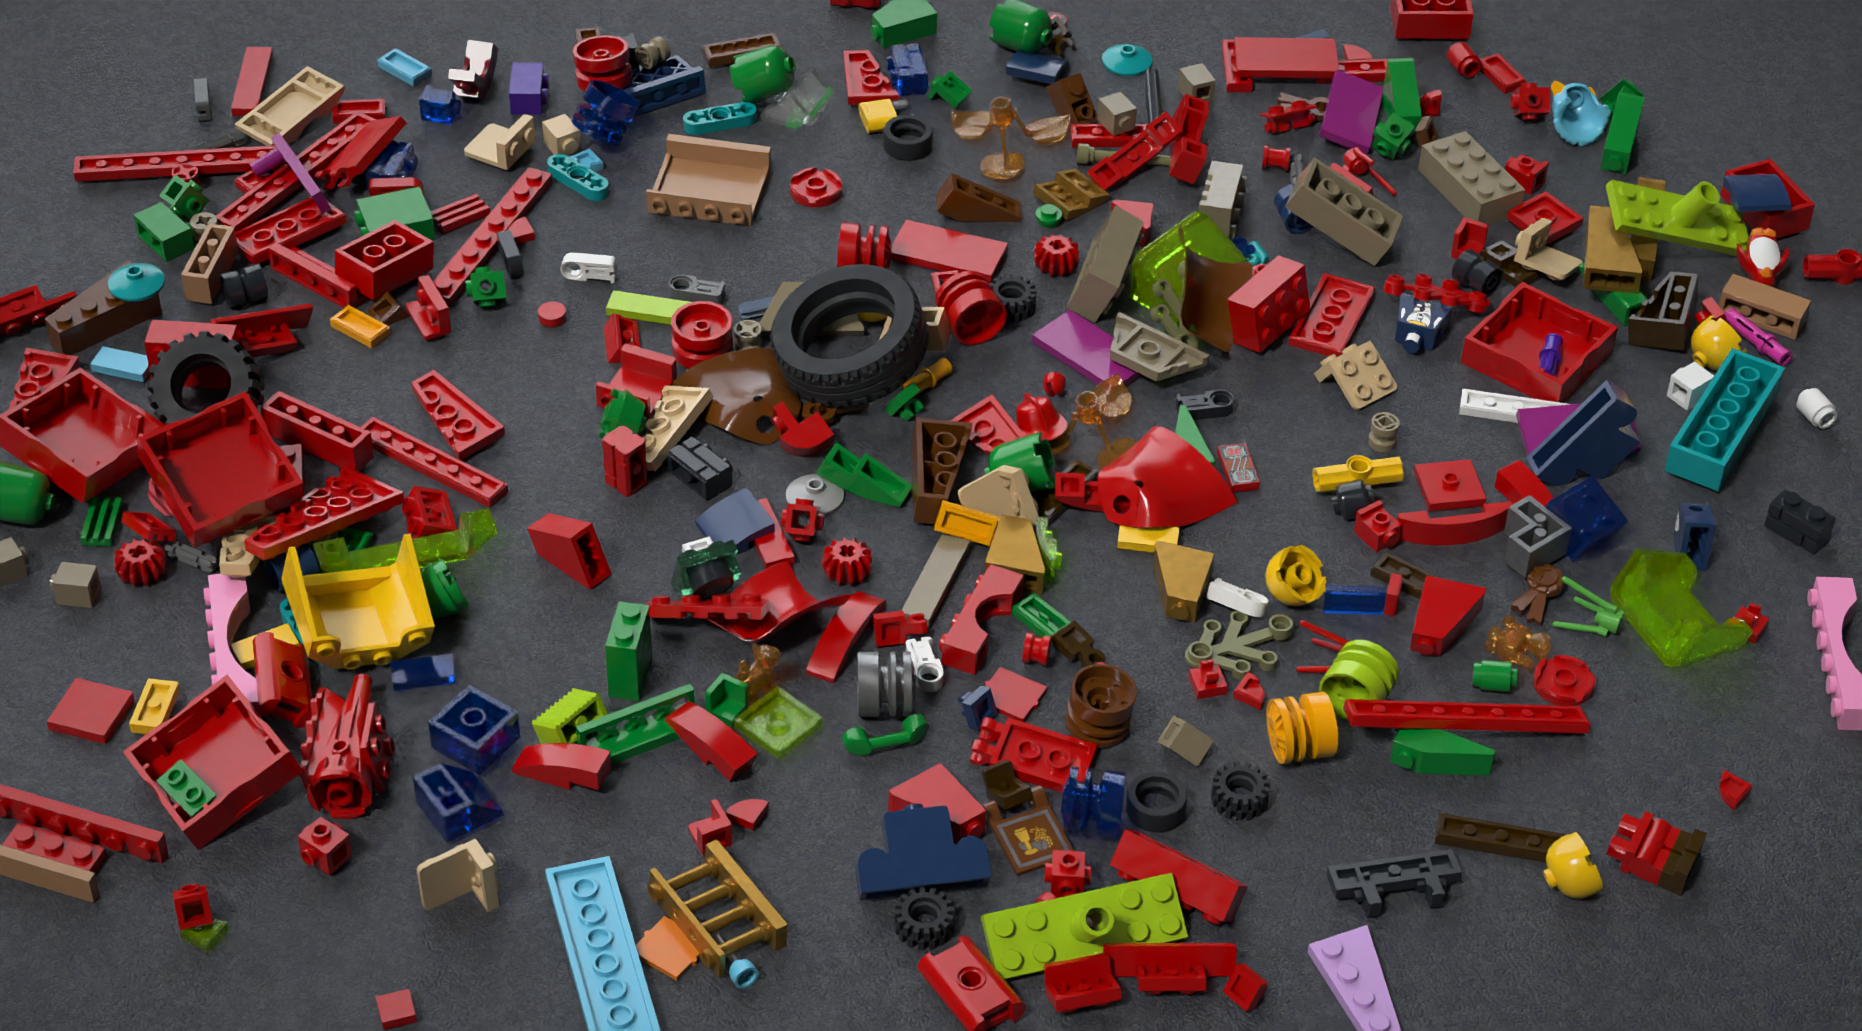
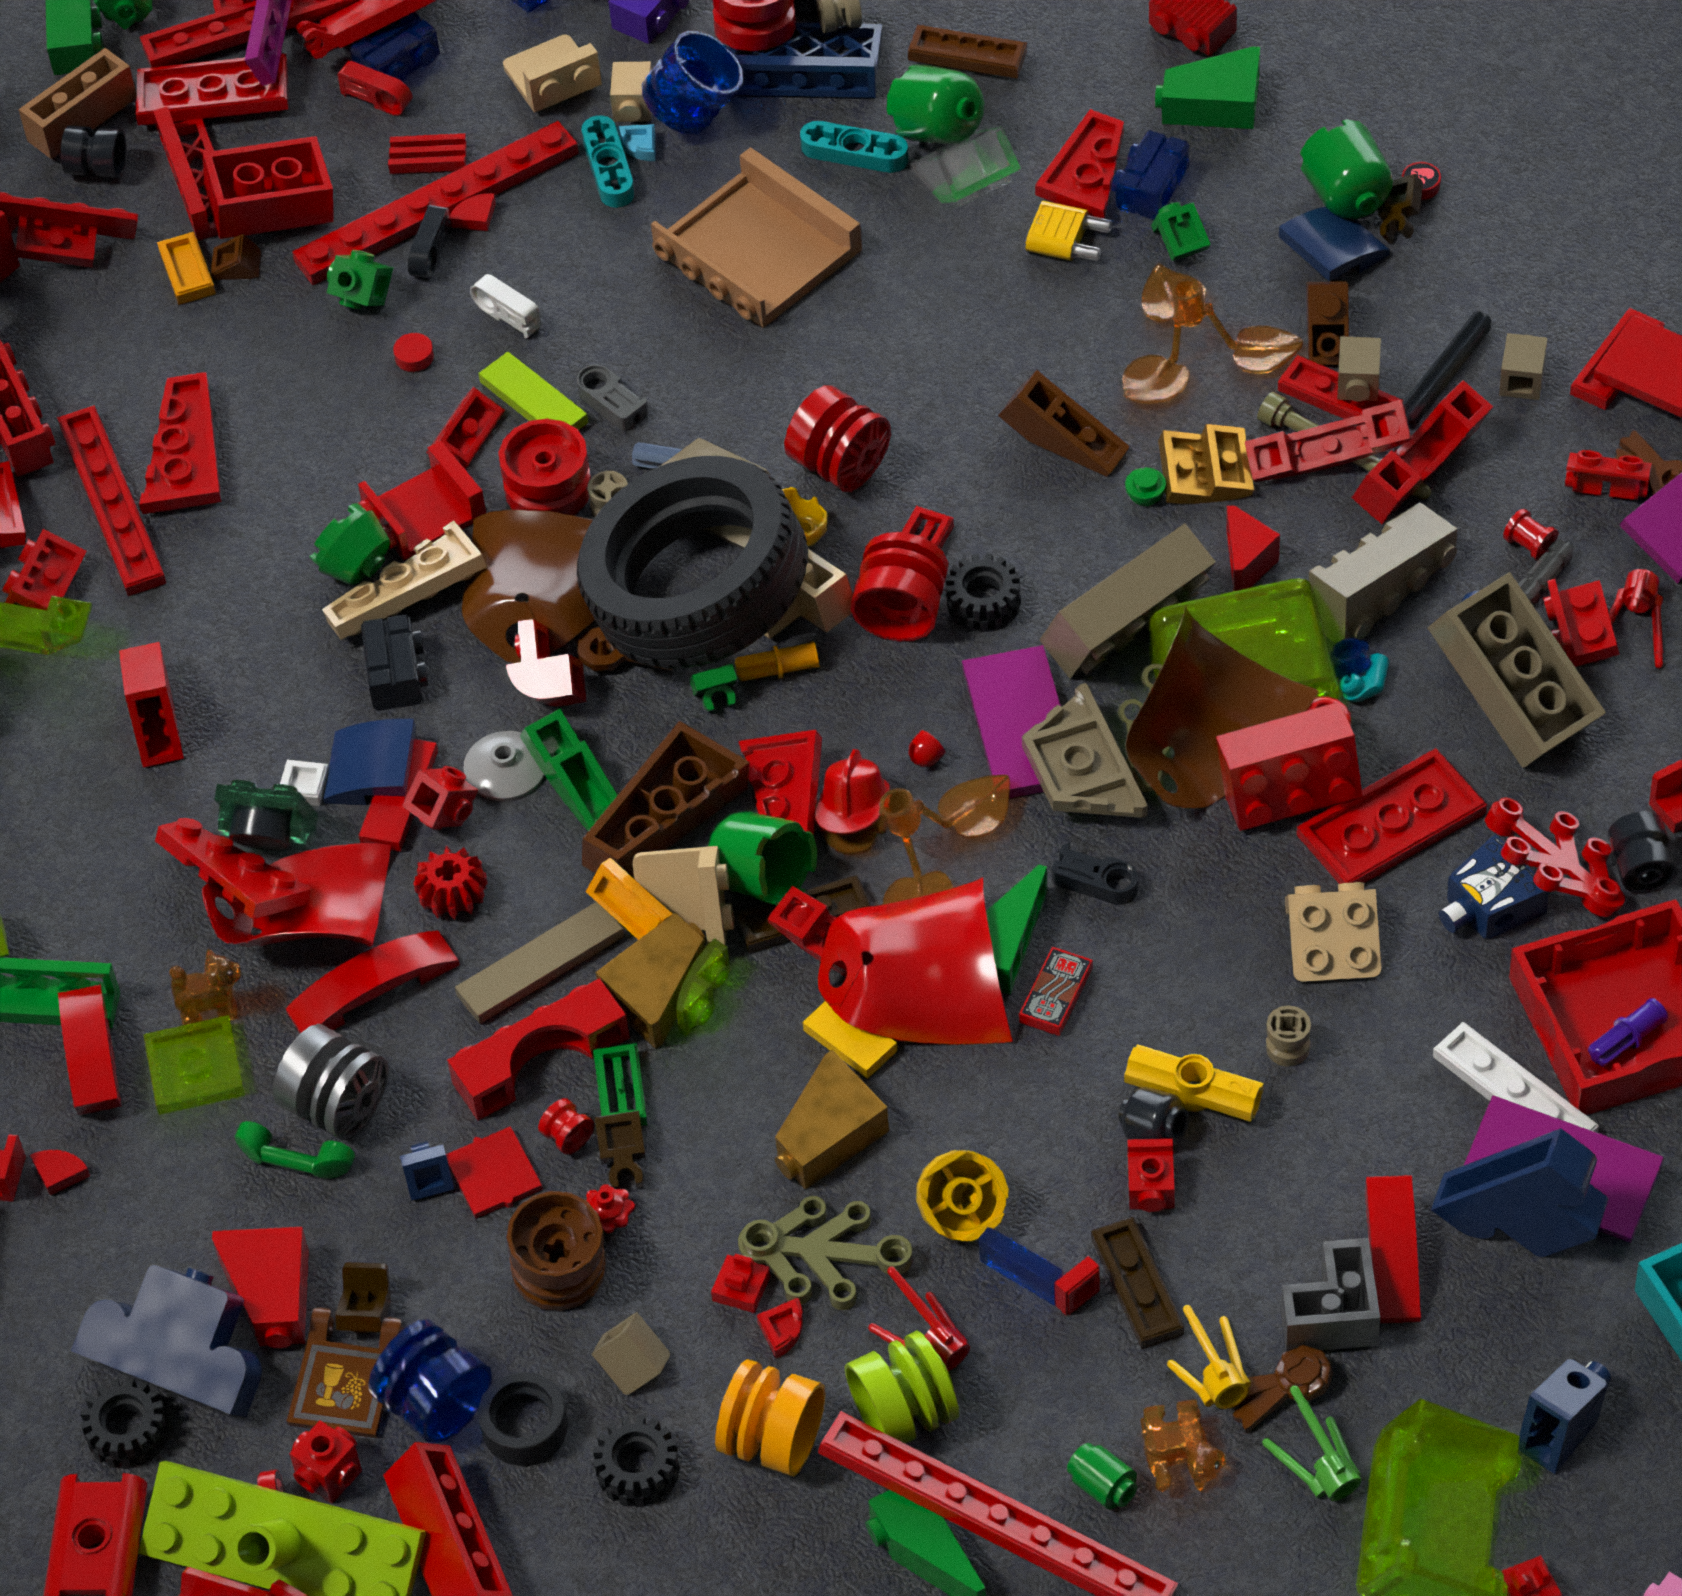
camera: 40 degrees right, 10 degrees up
(199, 223) = (123, 42): dark tan wheel -> none
(404, 206) = (348, 126): brick -> none
(429, 310) = (269, 284): red bracket -> none
(624, 461) = (301, 611): red brick -> none
(628, 651) = (81, 882): green brick -> none
(727, 698) = (149, 1003): green panel -> none
(815, 187) = (887, 306): red tile -> none
(893, 627) = (423, 1007): red plate -> none
(907, 149) = (1062, 259): black tyre -> none
(925, 663) = (426, 1071): white piece -> none
(947, 249) = (970, 481): tile -> none
(1035, 752) = (444, 1272): red tile -> none
(1056, 255) = (1094, 552): red gear -> none
(1127, 60) = (1474, 282): teal dish -> none
(1237, 598) = (874, 1181): white piece -> none
(1444, 613) = (1108, 1352): red slope -> none
(1449, 485) = (1313, 1160): red plate -> none
(1453, 530) = (1248, 1232): red slope -> none
(1512, 598) = (1223, 1382): none -> yellow plant
(1564, 680) = (1198, 1532): red tile -> none
(1590, 515) = (1425, 1308): clear blue brick -> none

